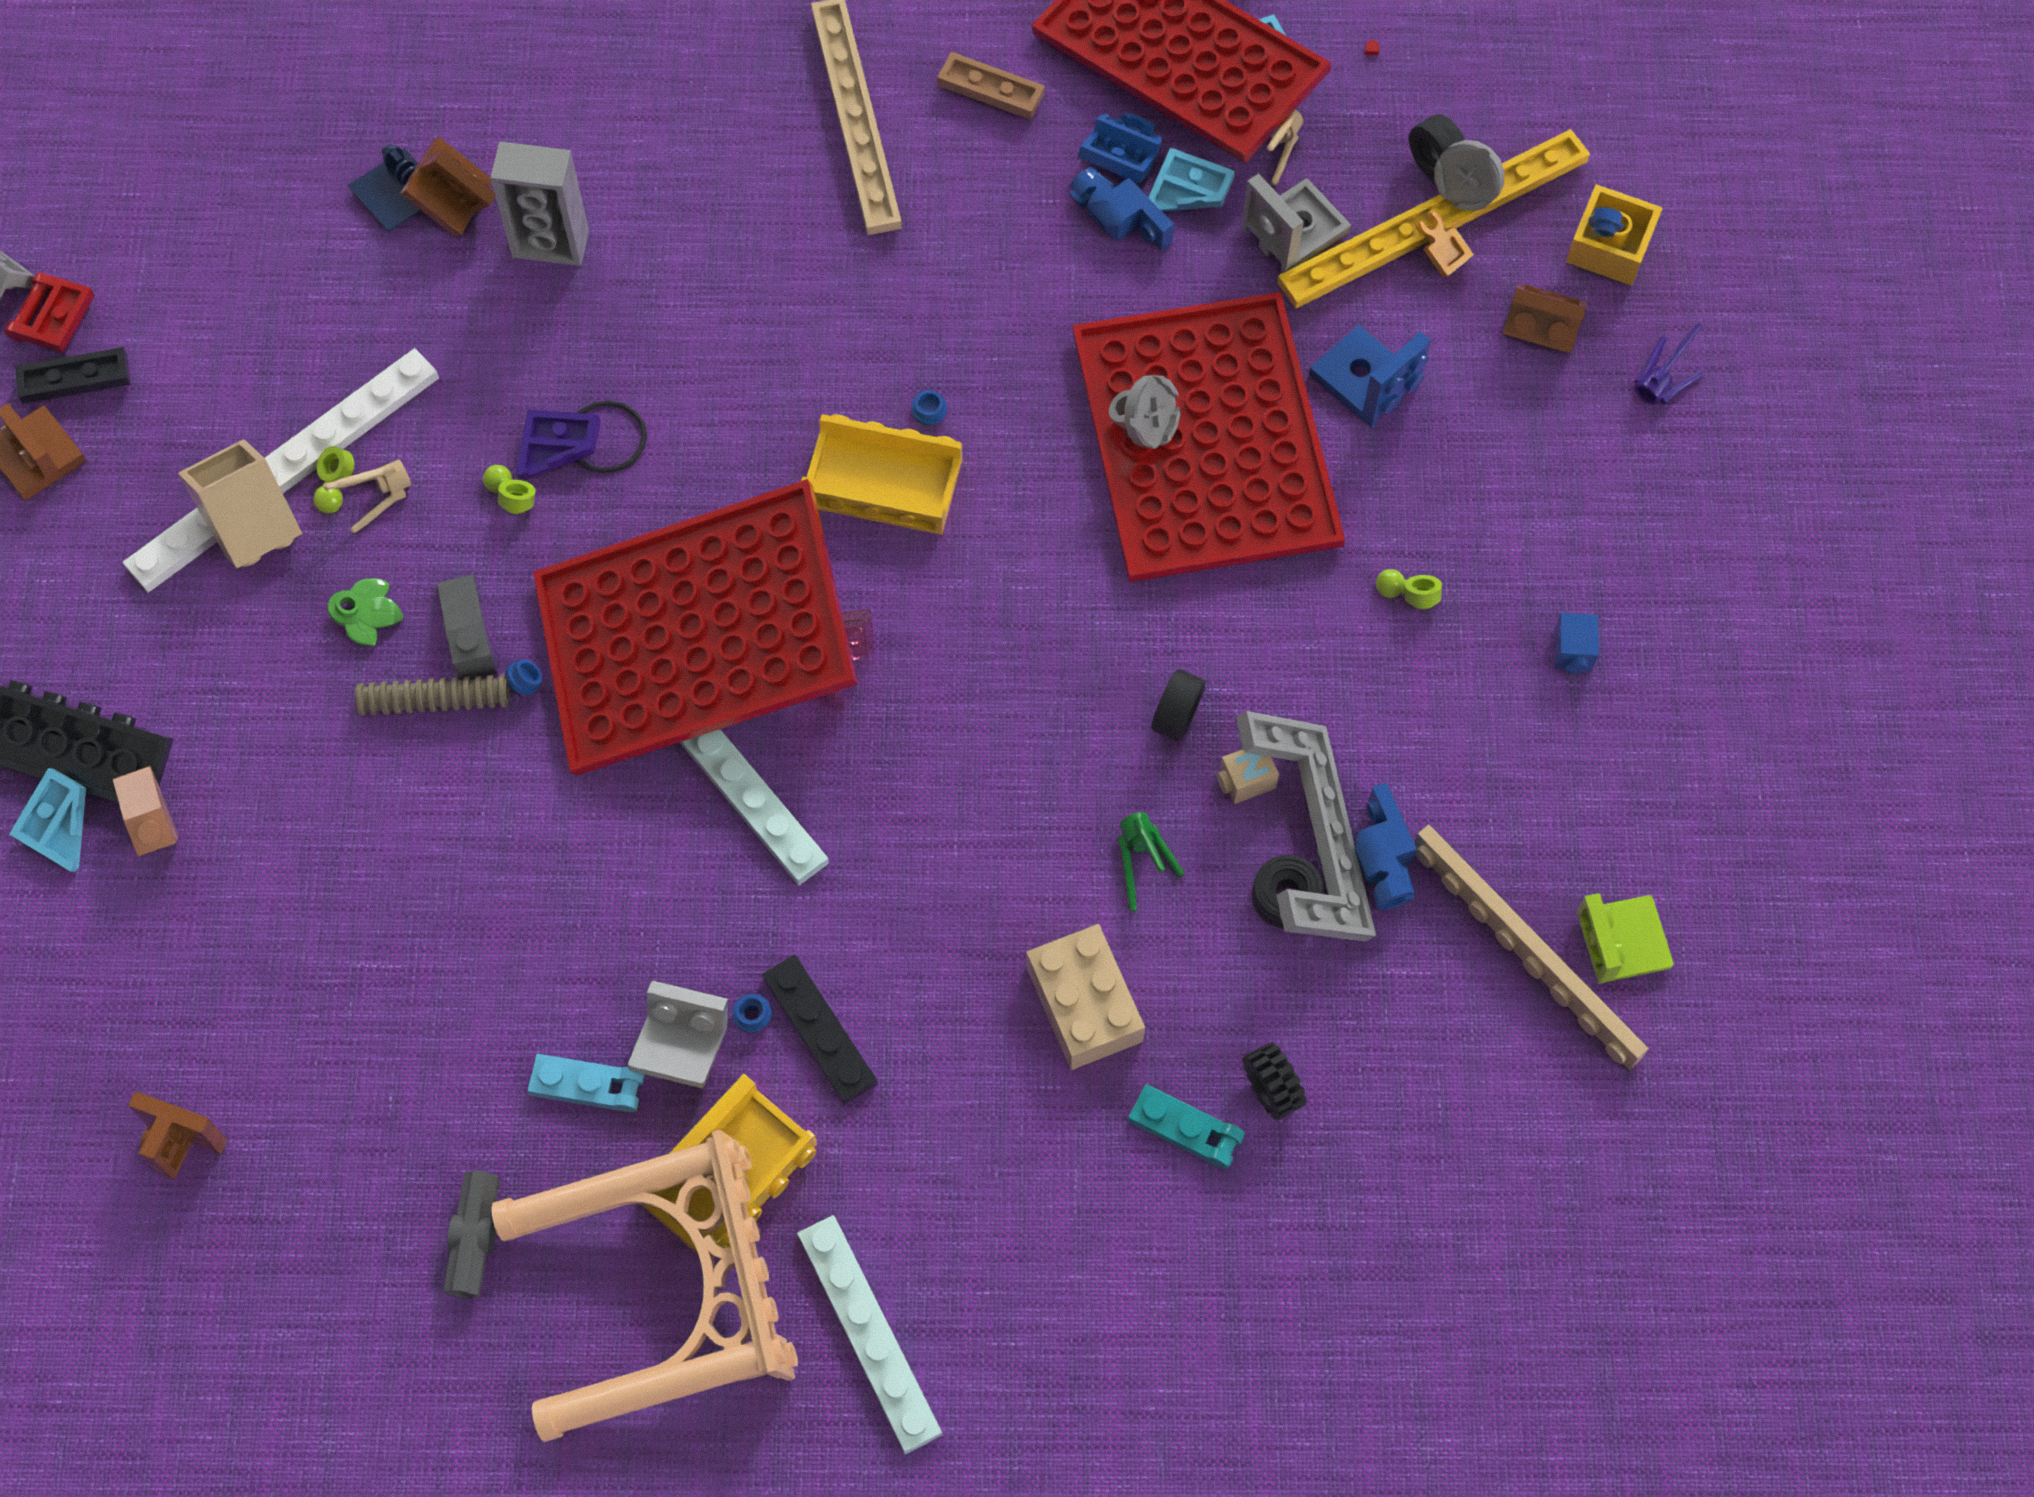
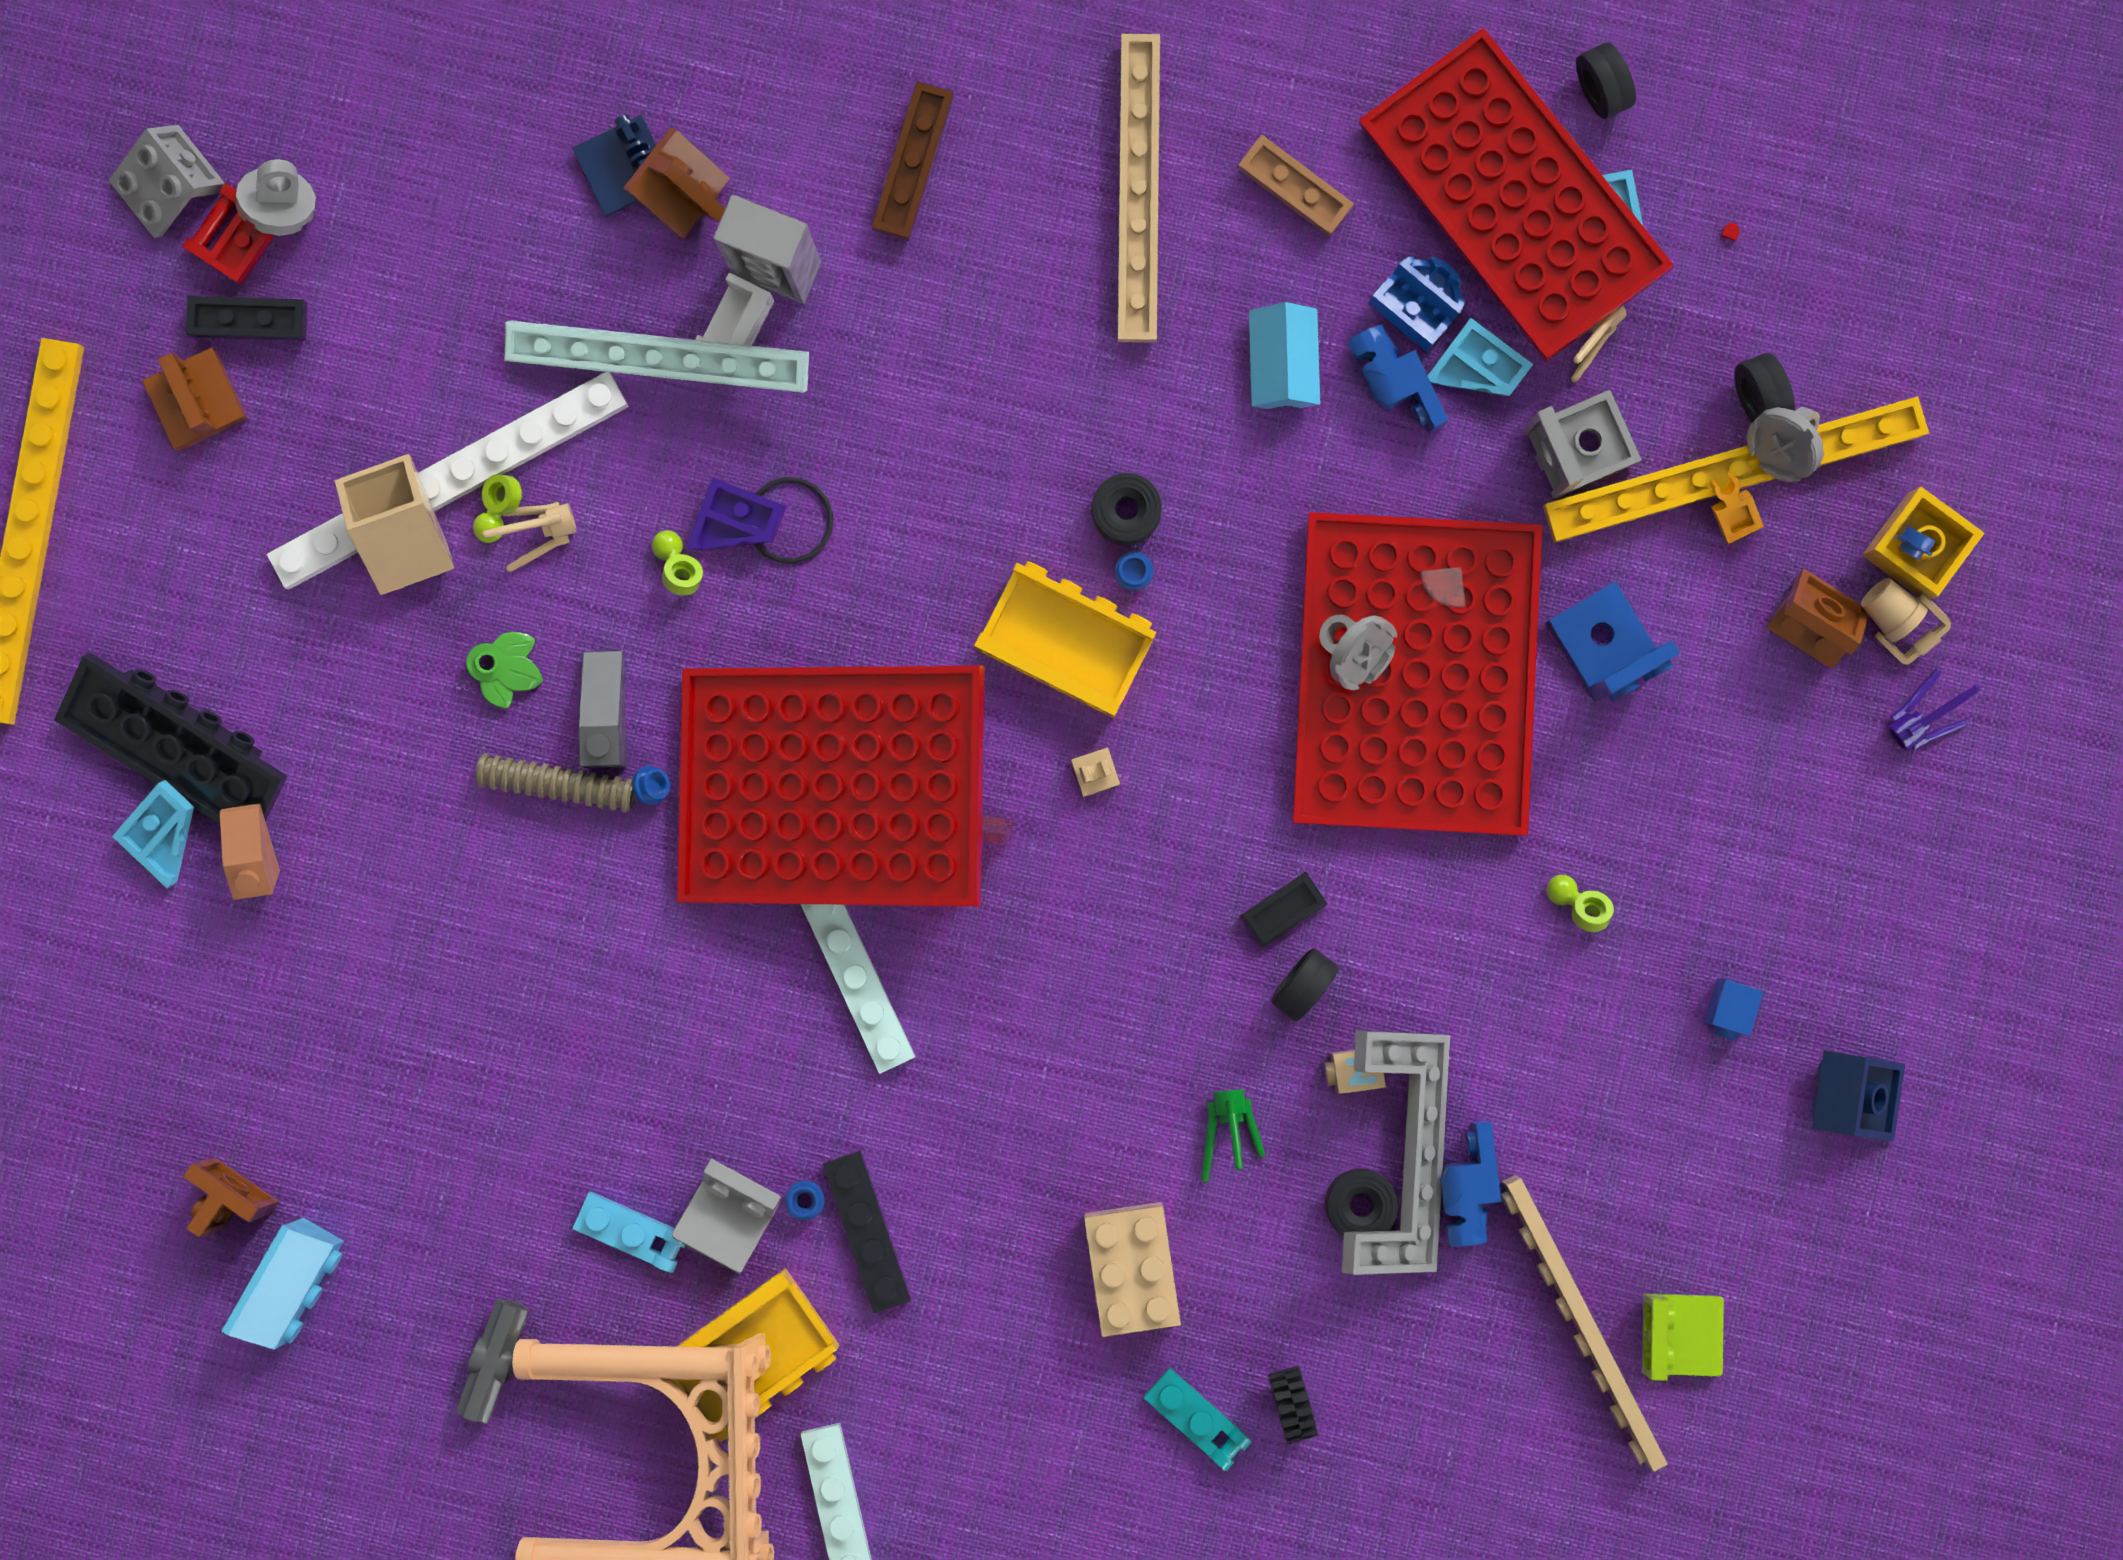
camera: 20 degrees right, 20 degrees up
(85, 273) = (275, 198): none -> light grey tile
(246, 1204) = (285, 1285): none -> medium azure slope
(456, 321) = (657, 356): none -> light aqua tile
(523, 286) = (739, 313): none -> white panel
(652, 134) = (913, 161): none -> reddish brown plate
(909, 340) = (1134, 488): none -> black tyre
(937, 579) = (1095, 772): none -> tan tile
(1016, 211) = (1284, 356): none -> medium azure piece
(1141, 656) = (1284, 909): none -> black tile
(1209, 354) = (1445, 586): none -> clear tile
(1609, 292) = (1899, 614): none -> tan piece
(1714, 690) = (1858, 1096): none -> dark blue slope

